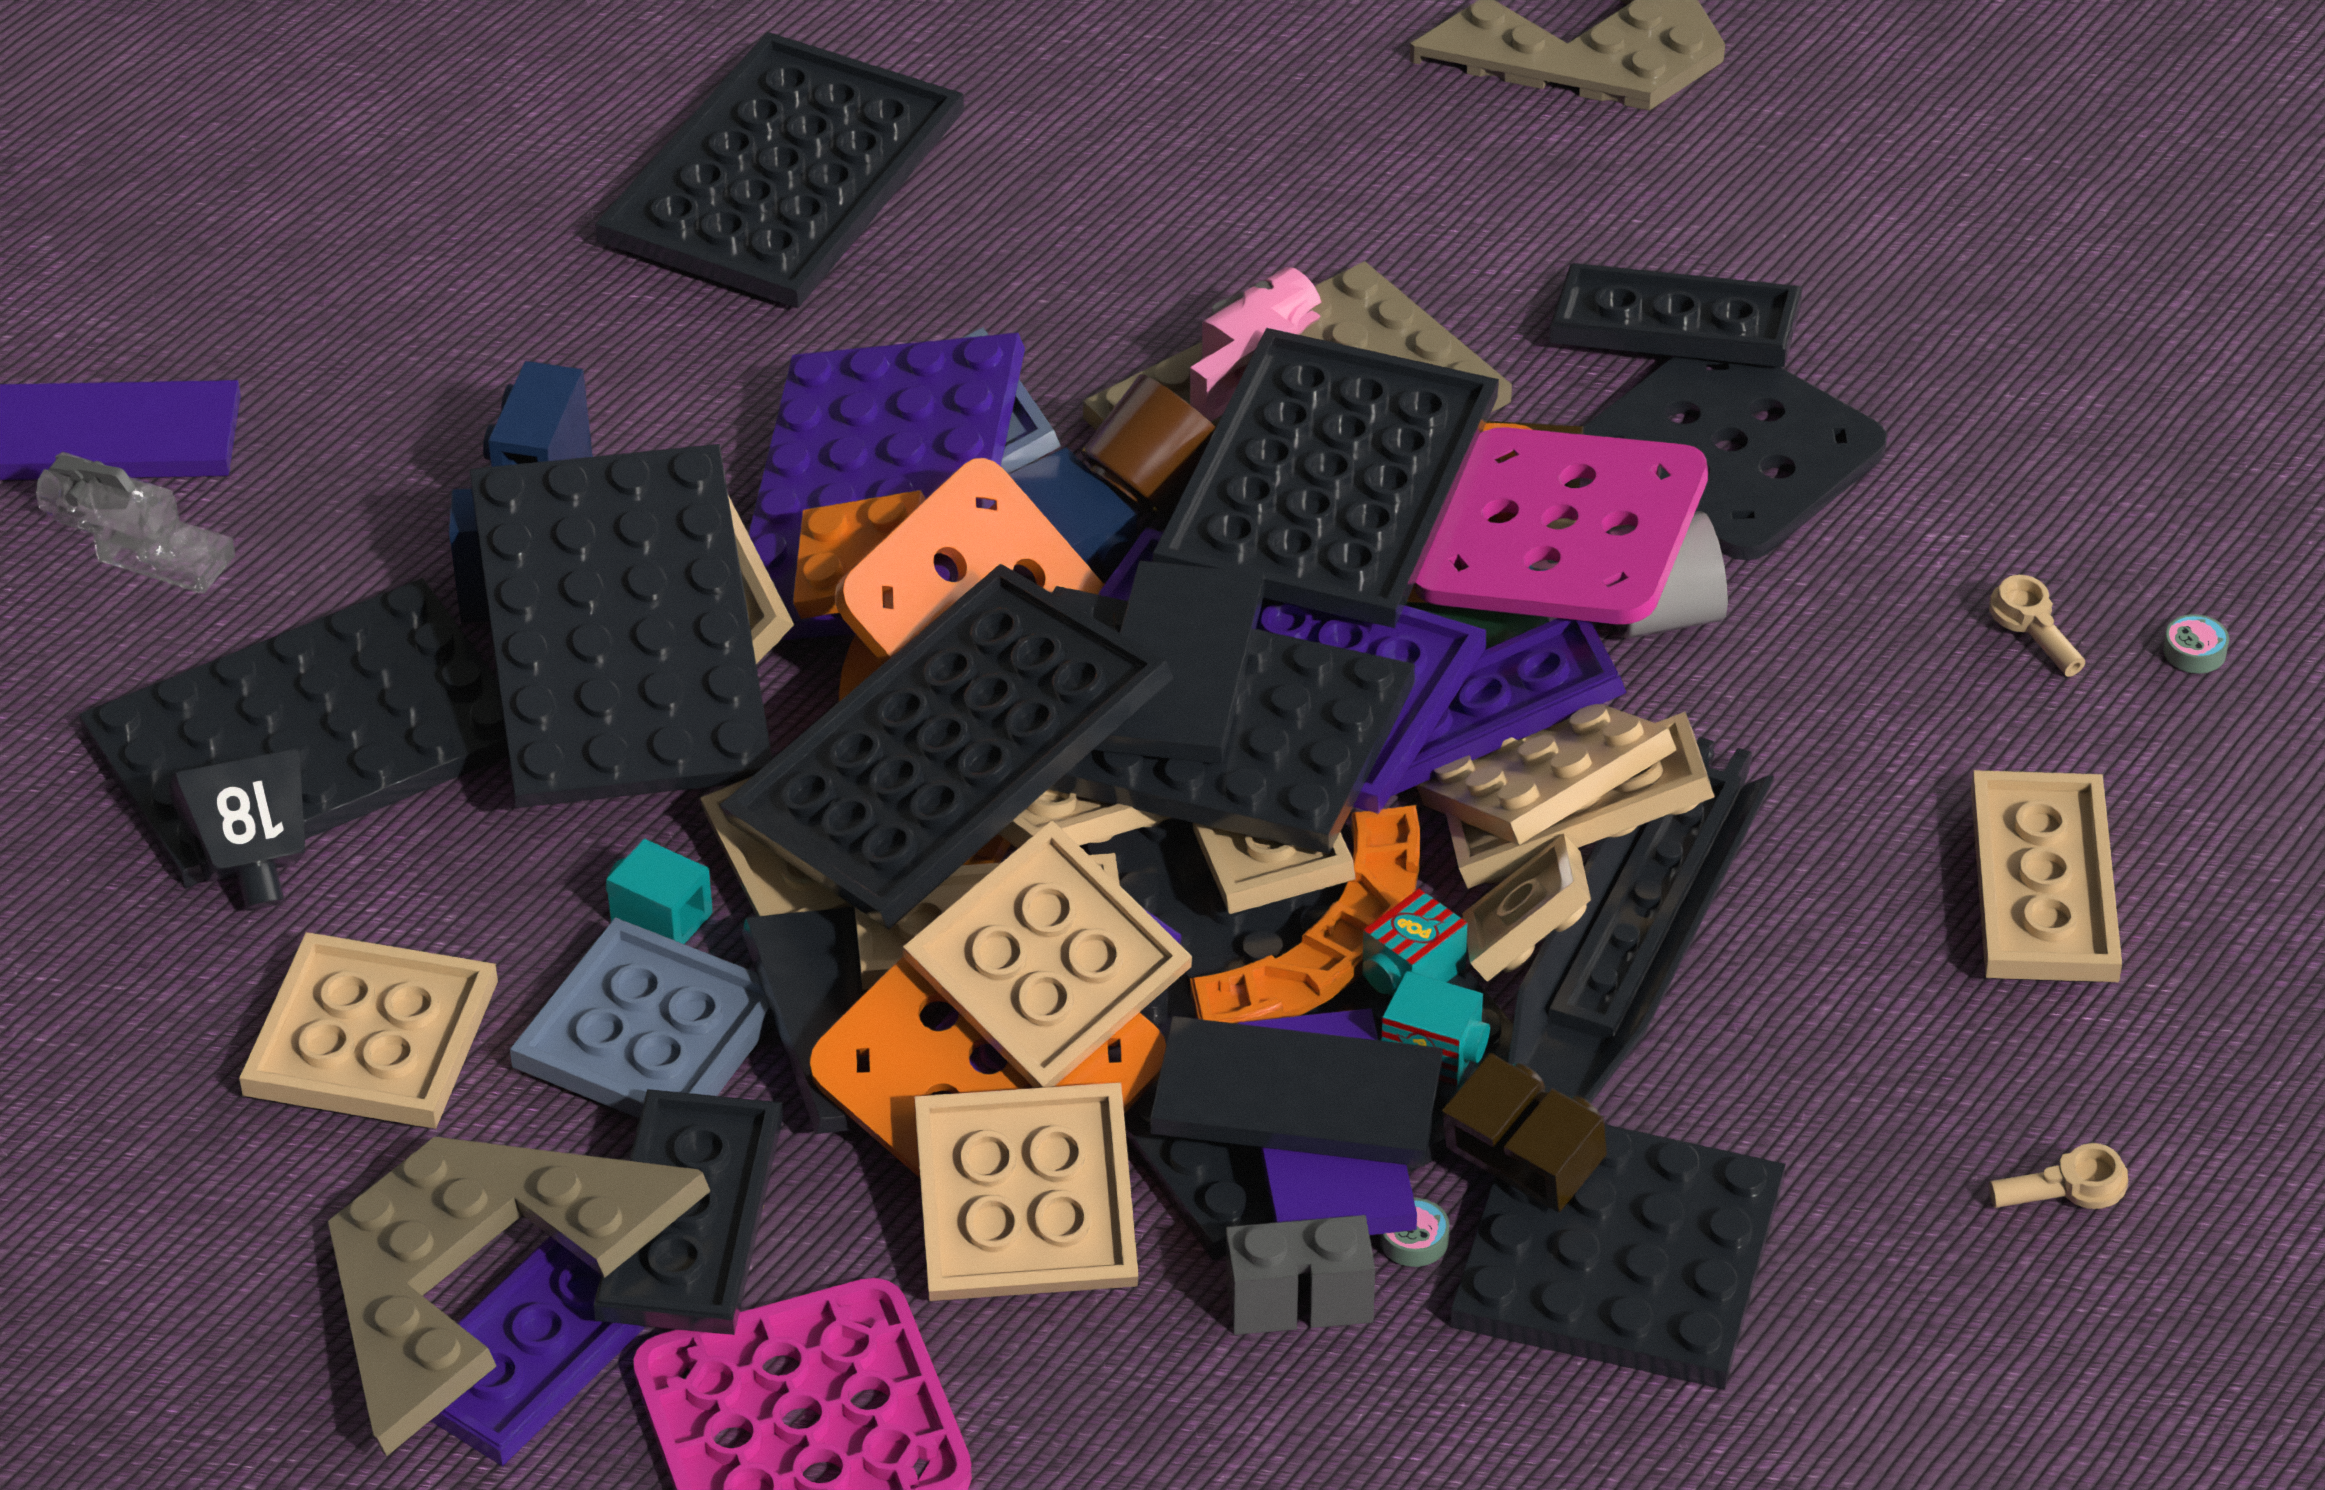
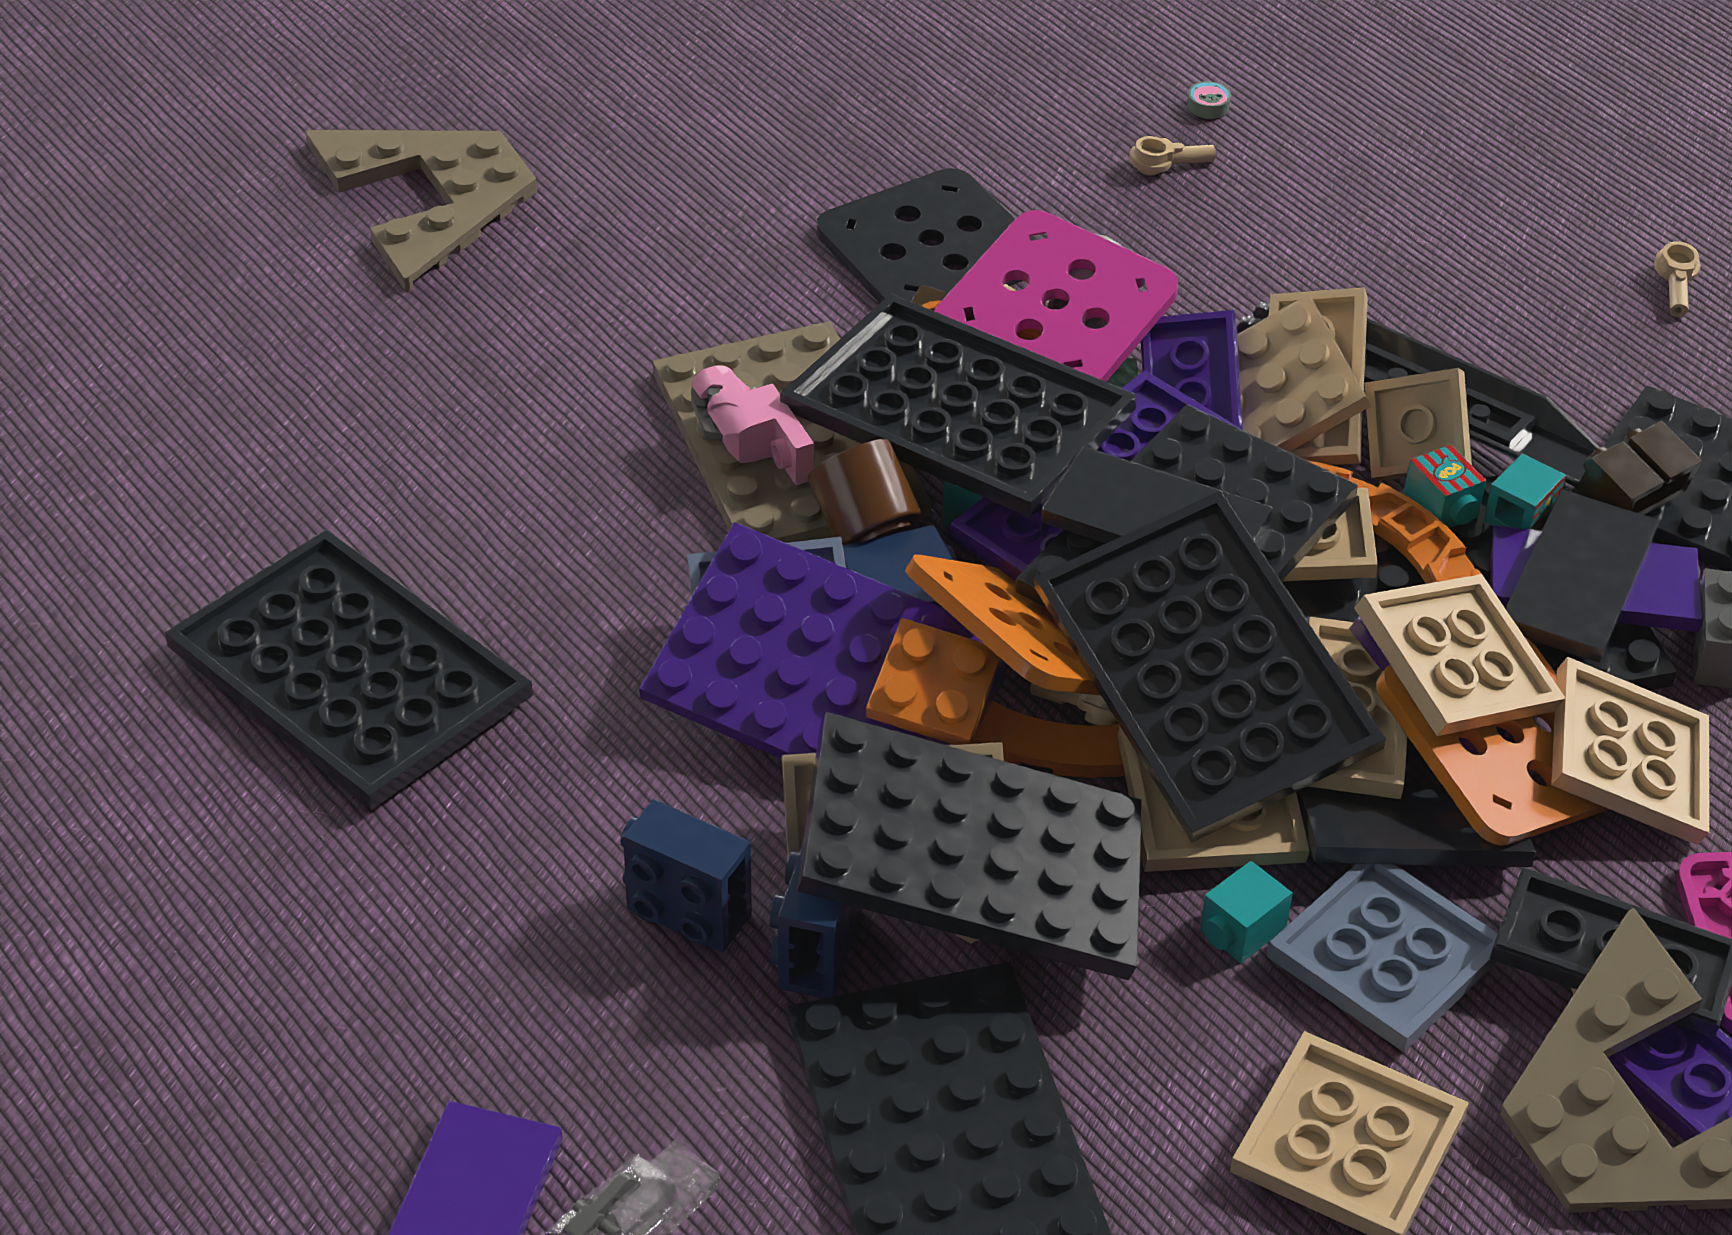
camera: 75 degrees left, 0 degrees up
(244, 821) = (1101, 1166): black torso -> none
(1676, 314) = (791, 227): black tile -> none
(2045, 876) = (1410, 211): tan plate -> none

